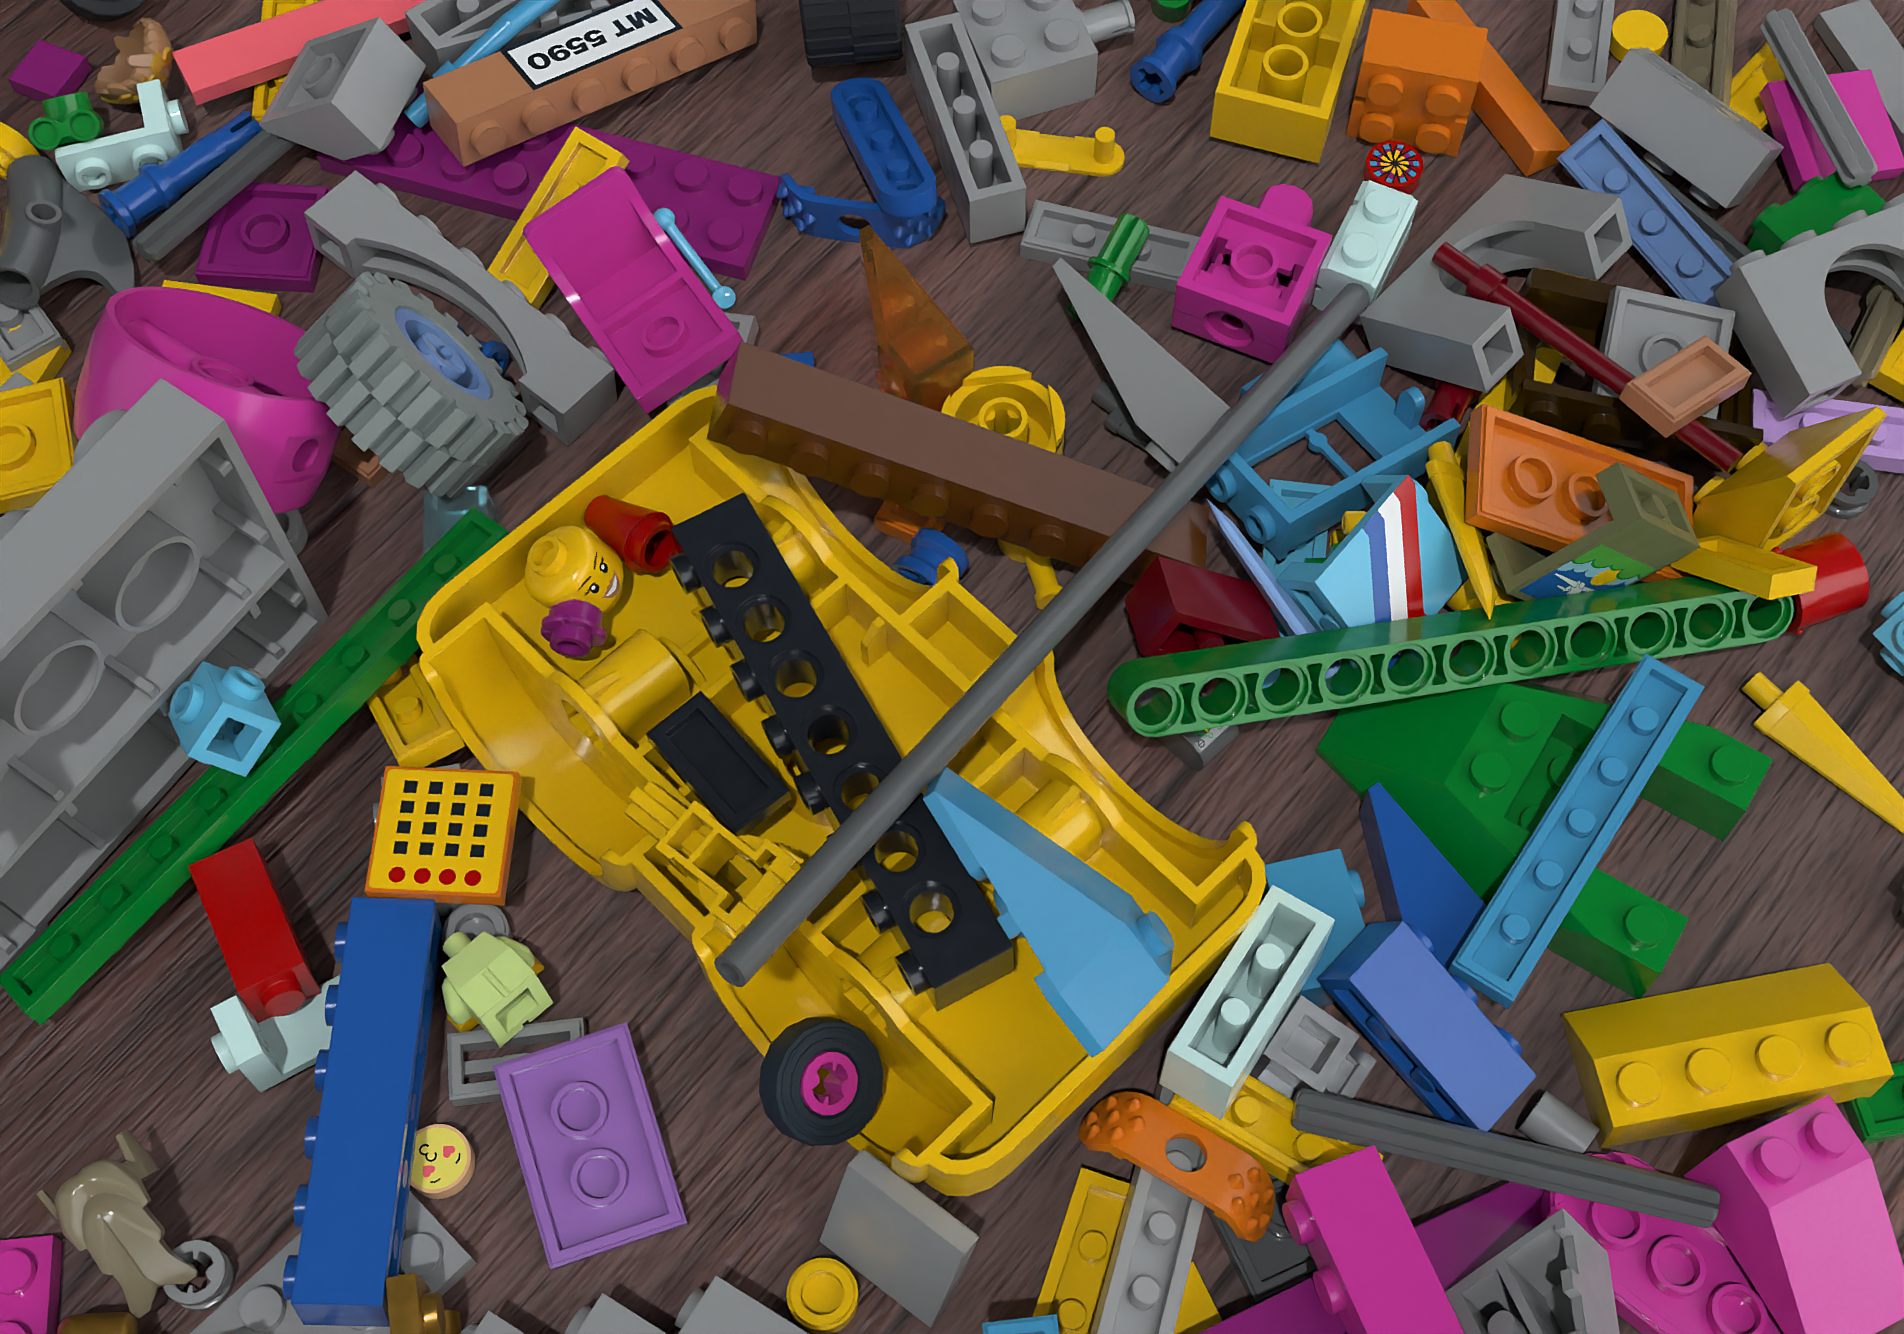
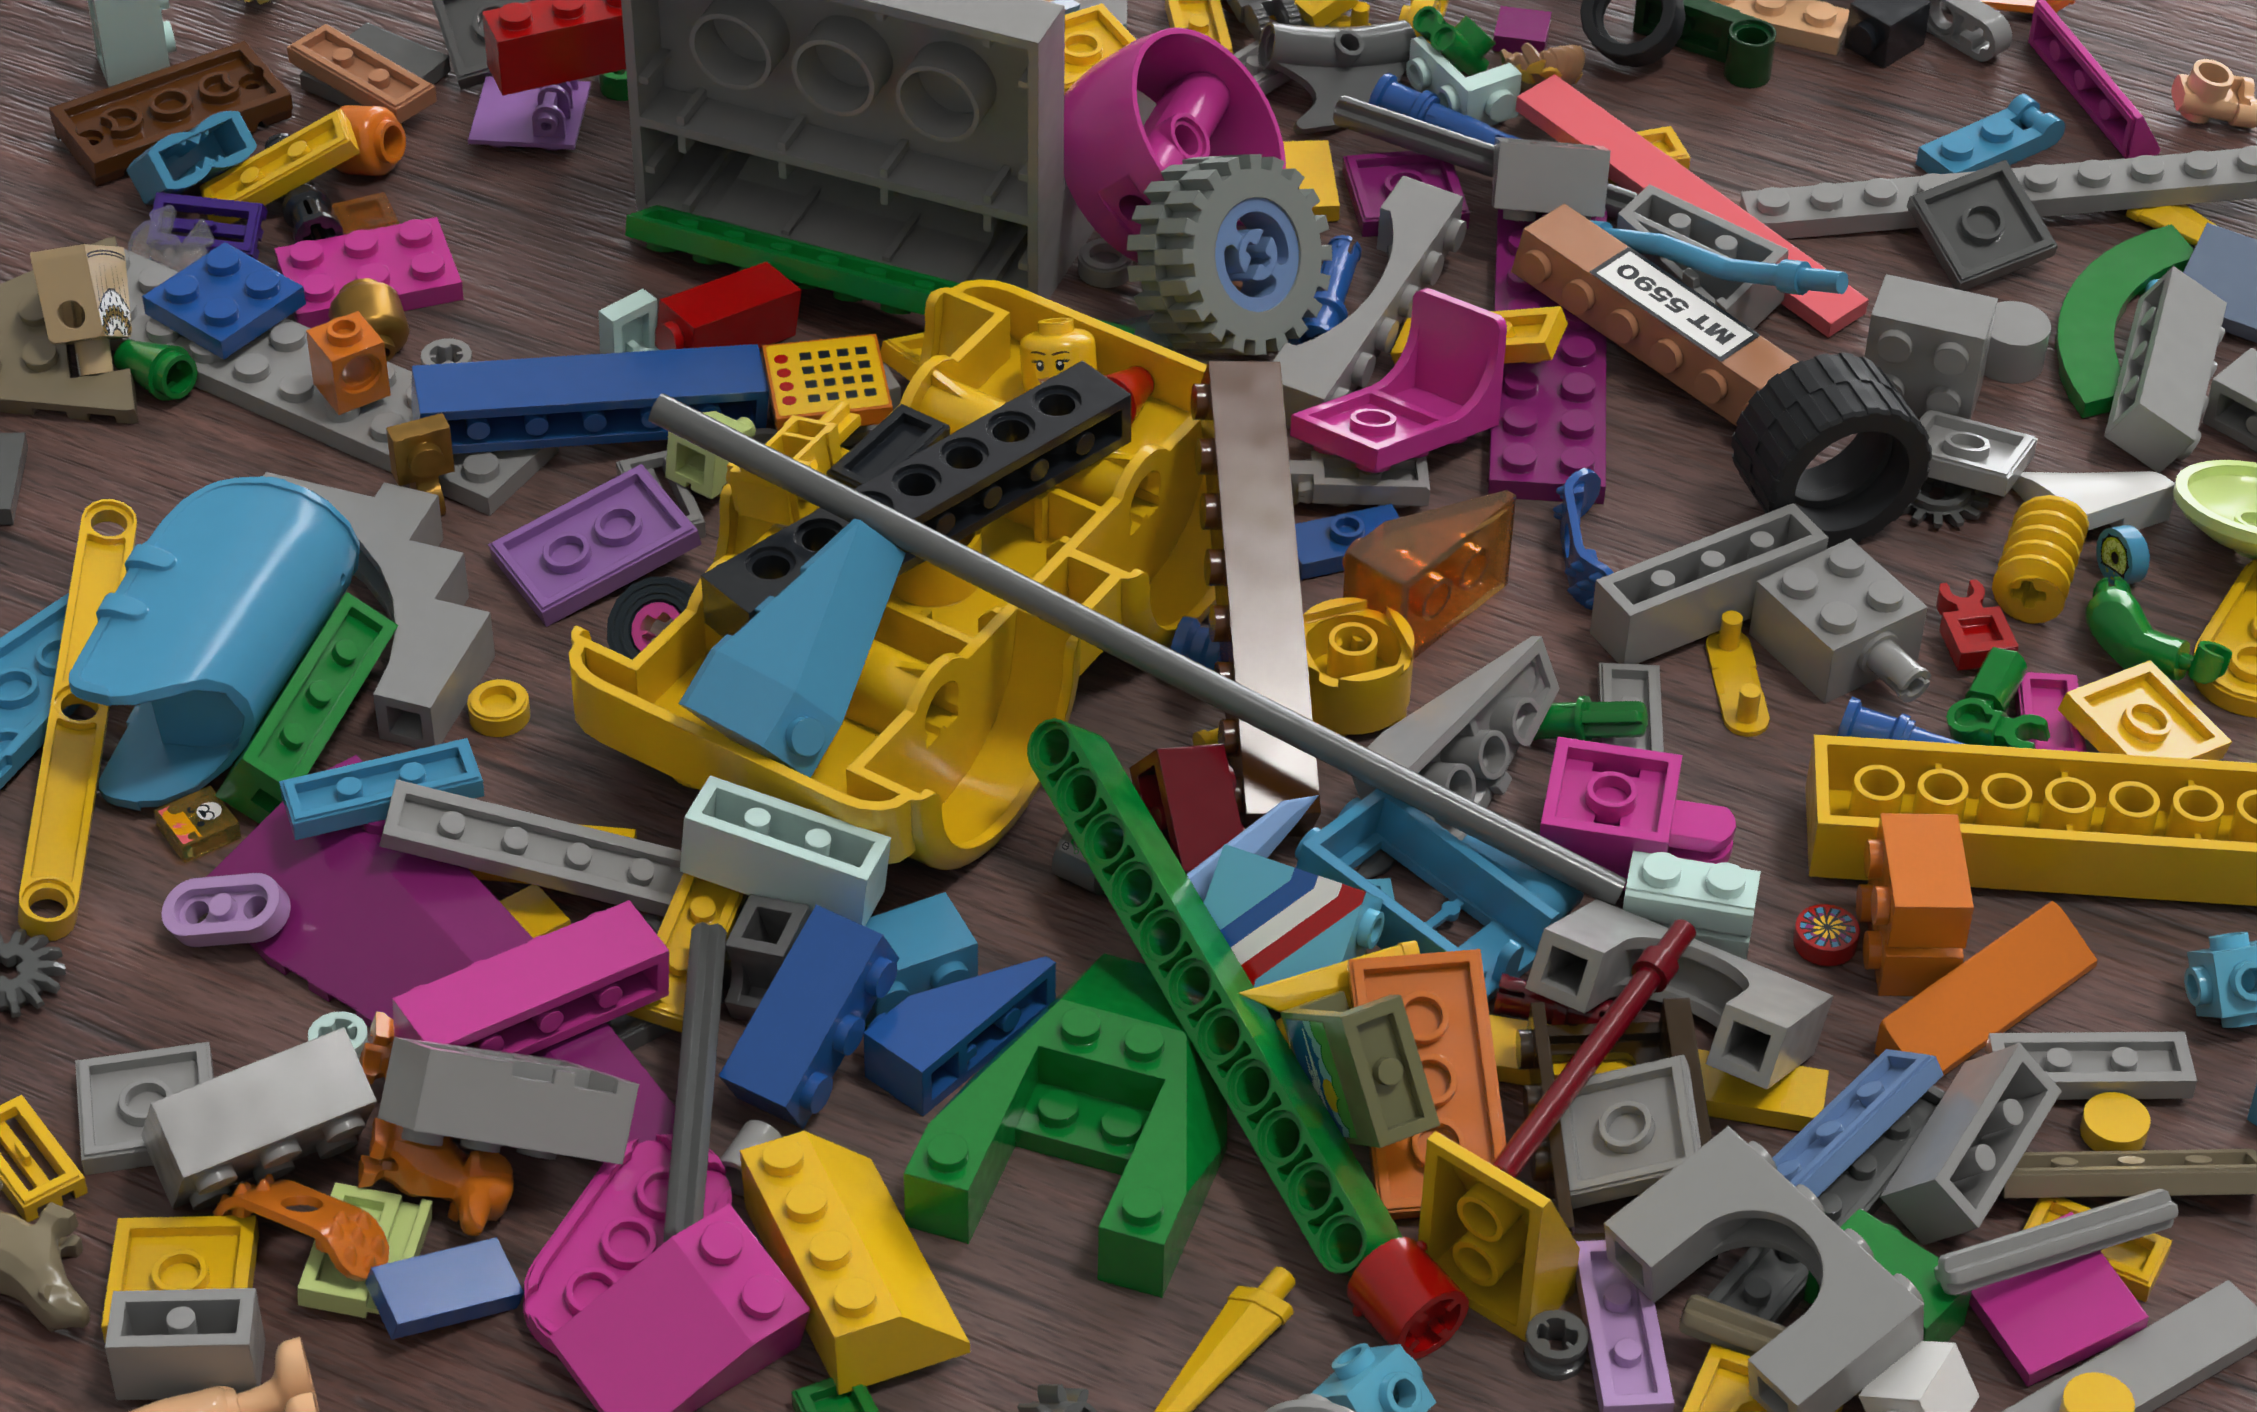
camera: 75 degrees right, 20 degrees down
(109, 1217) = (467, 289): dark tan hair -> none
(223, 717) = (883, 227): medium azure brick -> none
(441, 1161) = (565, 471): light yellow tile -> none
(573, 628) = (1007, 374): magenta plate -> none
(723, 295) = (1456, 479): medium azure hinge -> none
(884, 148) = (1644, 526): blue plate -> none
(898, 1238) = (533, 723): light grey tile -> none
(1228, 1183) = (656, 836): orange piece -> none
(1575, 831) = (1041, 1092): dark azure tile -> none
(1685, 386) = (1573, 1116): nougat tile -> none
(1748, 568) = (1379, 1205): yellow tile -> none

